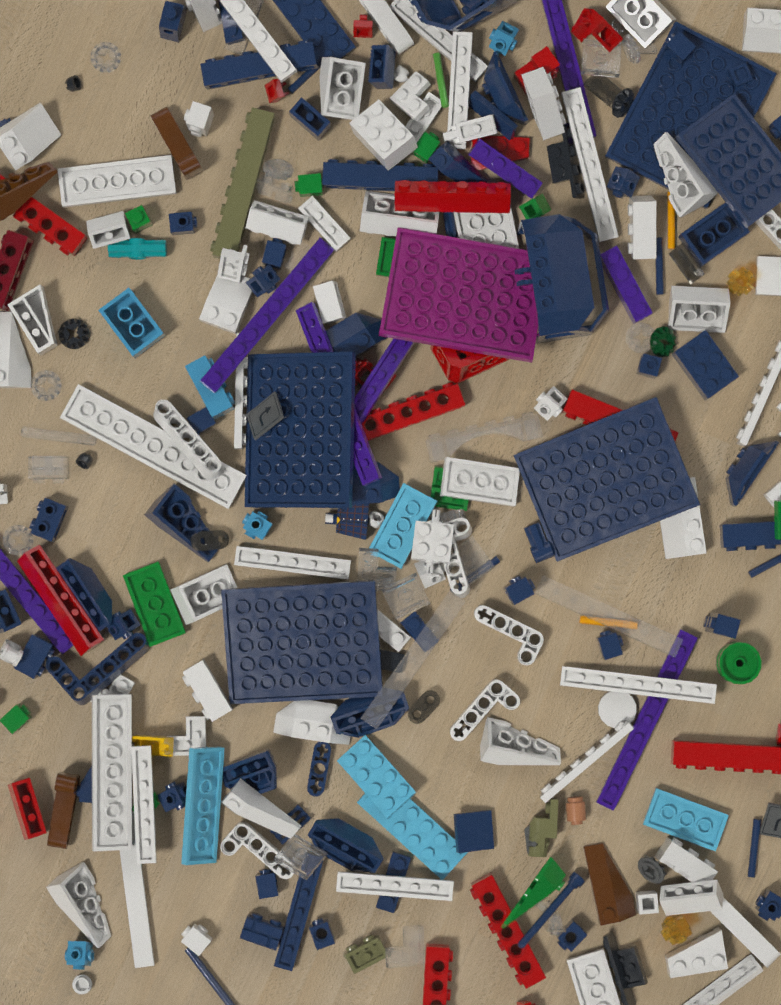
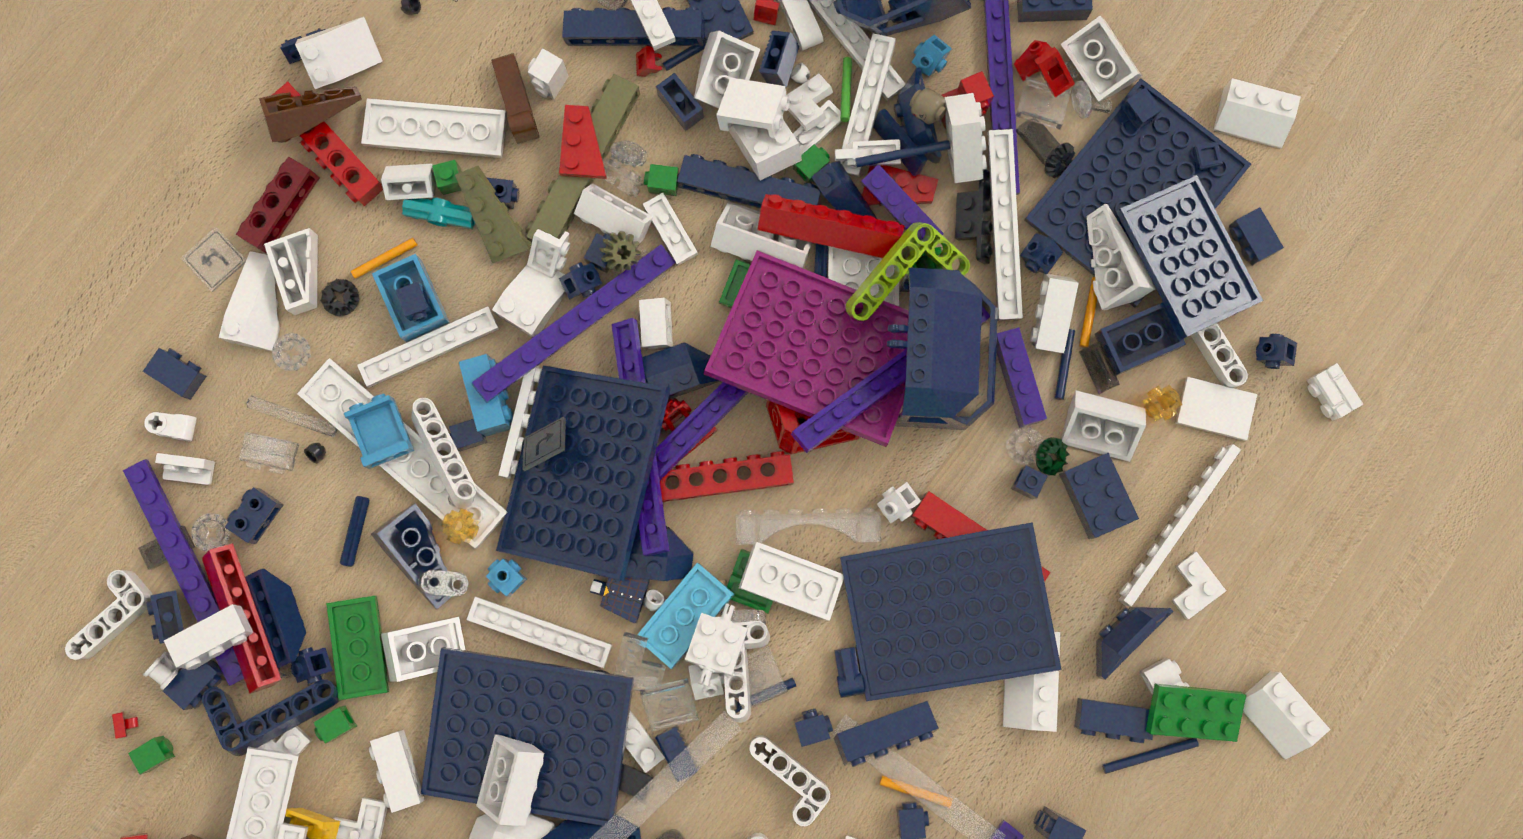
camera: 15 degrees right, 5 degrees down
(45, 618) = (209, 638): none -> white wedge
(101, 294) = (383, 258): none -> light orange bar
(130, 505) = (354, 531): none -> dark blue axle
(132, 433) = (379, 430): none -> dark azure panel
(139, 326) = (414, 302): none -> dark blue brick
(150, 666) = (334, 724): none -> green brick
(153, 358) = (428, 347): none -> white plate
(184, 249) = (494, 224): none -> olive wing
(219, 499) = (469, 526): none -> clear yellow brick
(238, 172) = (579, 145): none -> red wing
(286, 257) = (620, 260): none -> olive gear
(297, 677) = (510, 781): none -> white slope
(371, 113) = (753, 105): none -> white panel
(497, 125) = (902, 153): none -> dark blue bar
(502, 331) = (855, 401): none -> dark purple plate
(509, 84) = (928, 105): none -> dark tan head
(515, 218) = (901, 265): none -> lime beam
(576, 582) = (886, 733): none -> dark blue brick

